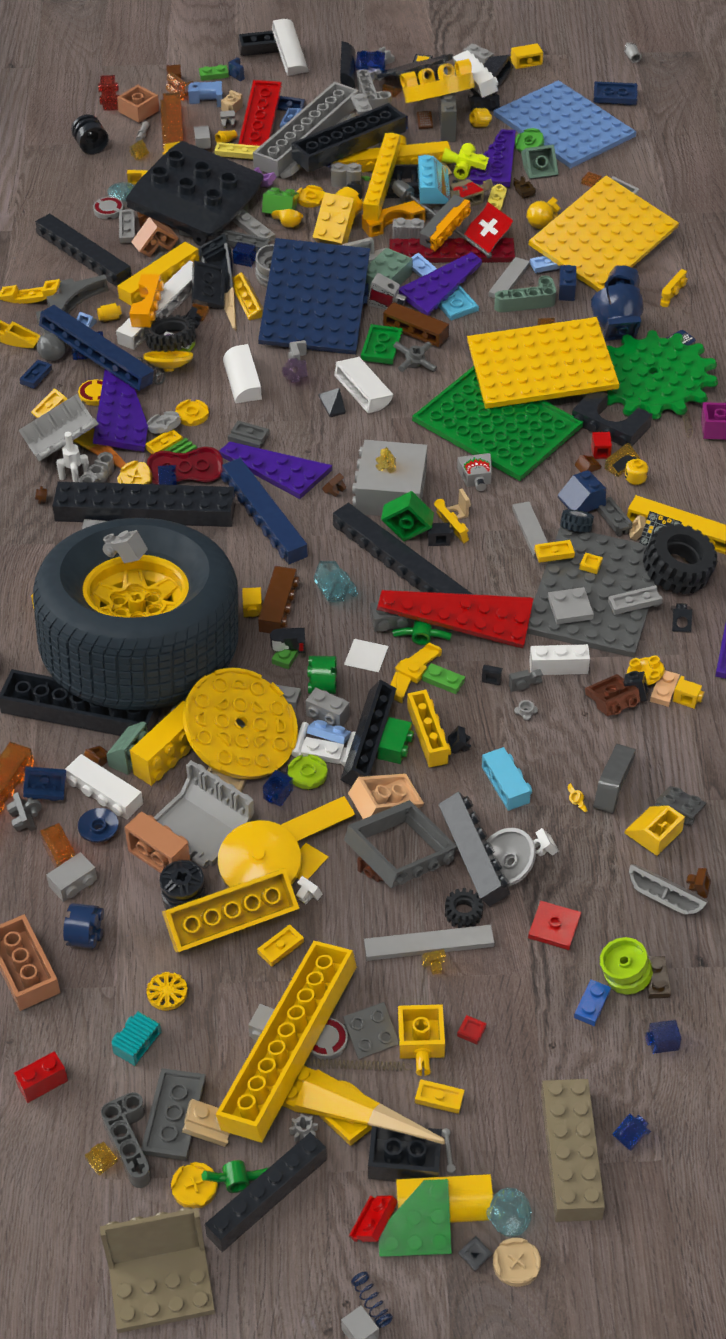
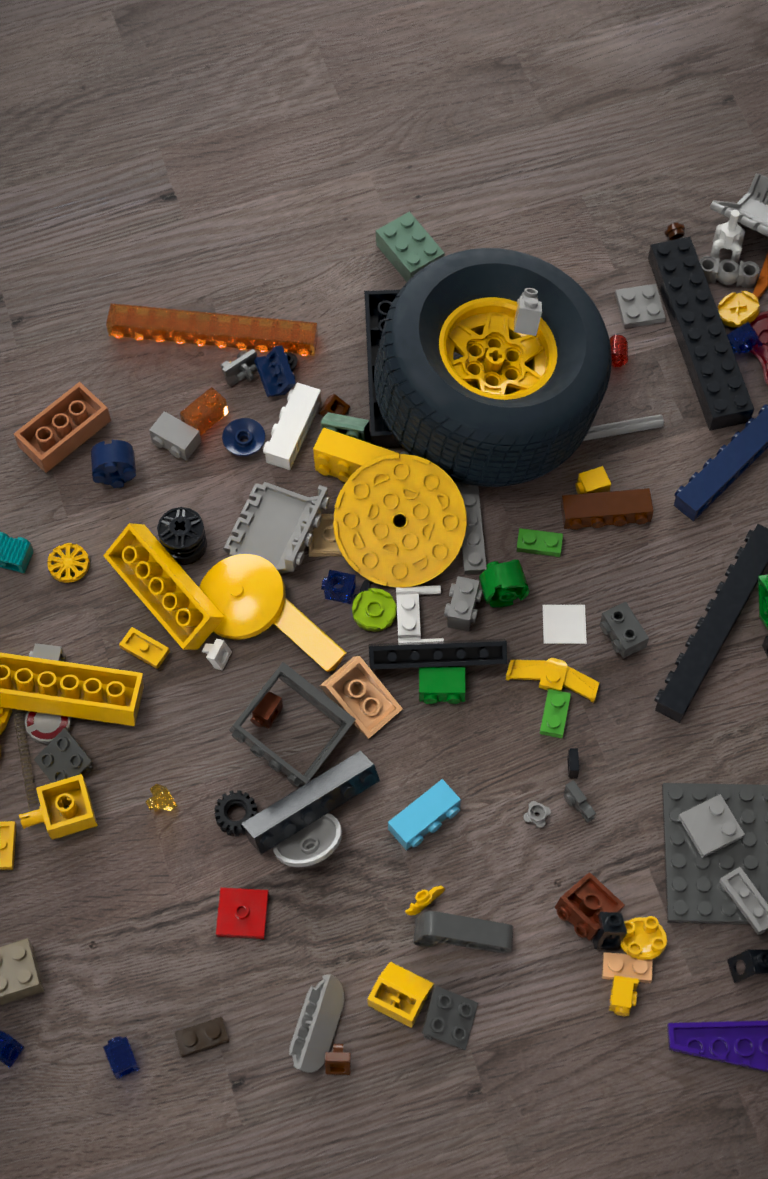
camera: 75 degrees right, 15 degrees up
(155, 842) = (225, 496): nougat brick -> none
(288, 639) = (541, 529): black leg -> none
(310, 860) = (262, 646): yellow sticker -> none
(333, 581) = (651, 554): clear light blue brick -> none
(333, 733) = (433, 614): light blue plate -> none
(422, 633) = (613, 672): green piece -> none
(425, 942) = (187, 790): light grey tile -> none
(428, 728) = (465, 713): yellow brick -> none
(458, 740) = (464, 749): black tile -> none
(471, 1029) = (90, 858): red tile -> none
(484, 616) = (655, 731): red wing -> none
(546, 842) = (347, 878): white tile -> none
(560, 659) = (622, 833): white brick -> none
(592, 1002) = (152, 974): blue plate -> none
(626, 965) = (194, 996): lime wheel -> none

